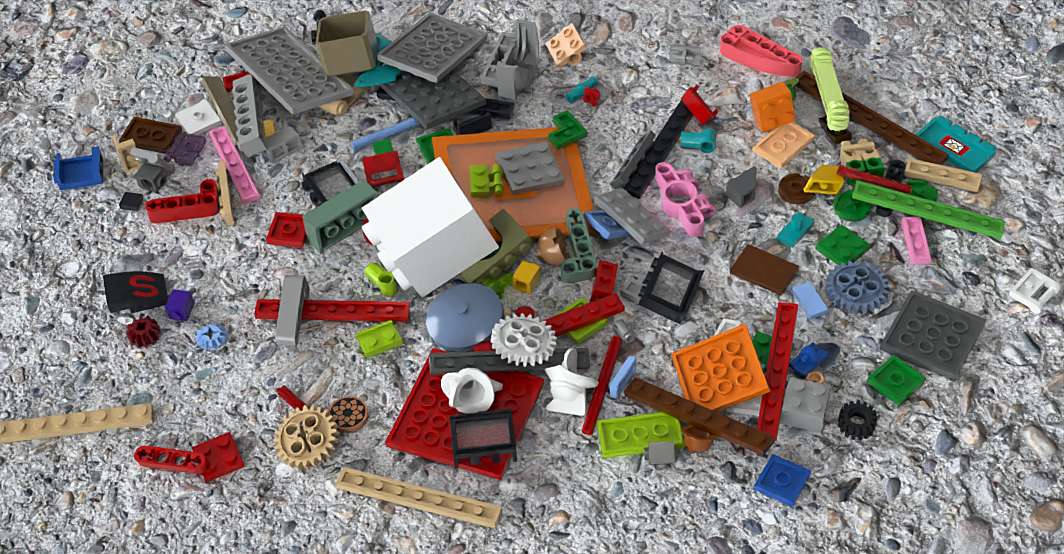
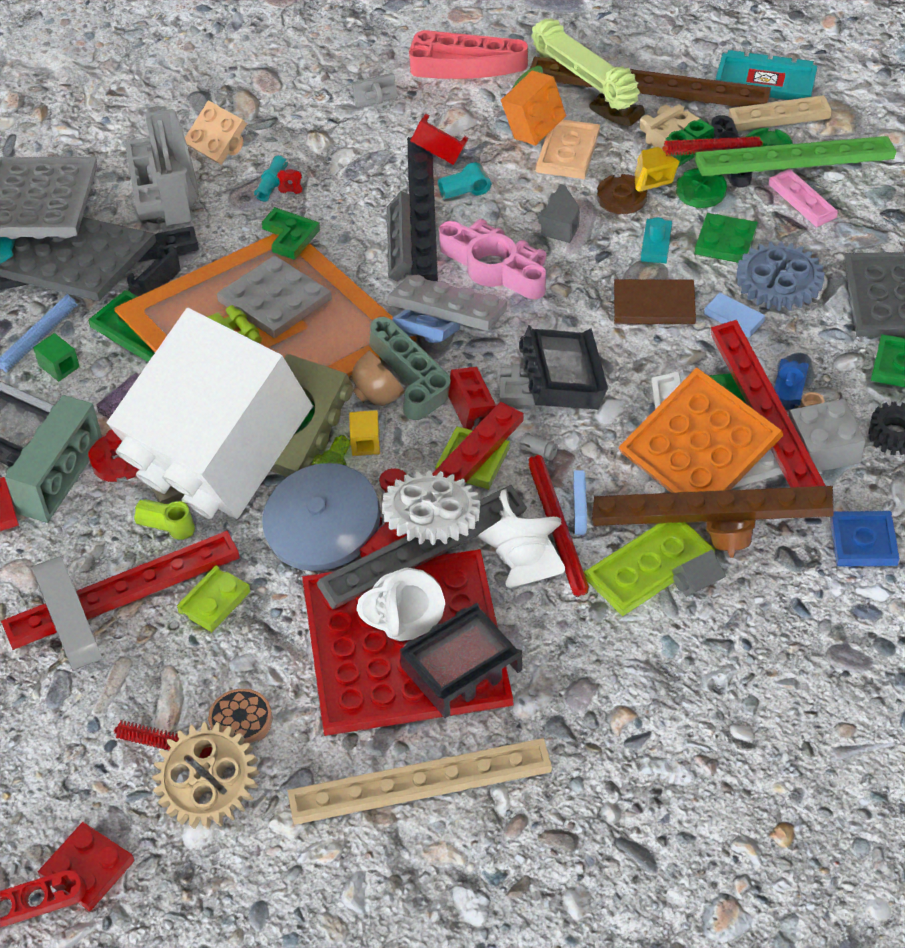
camera: 30 degrees left, 0 degrees up
(382, 163) = (67, 367): red plate -> none

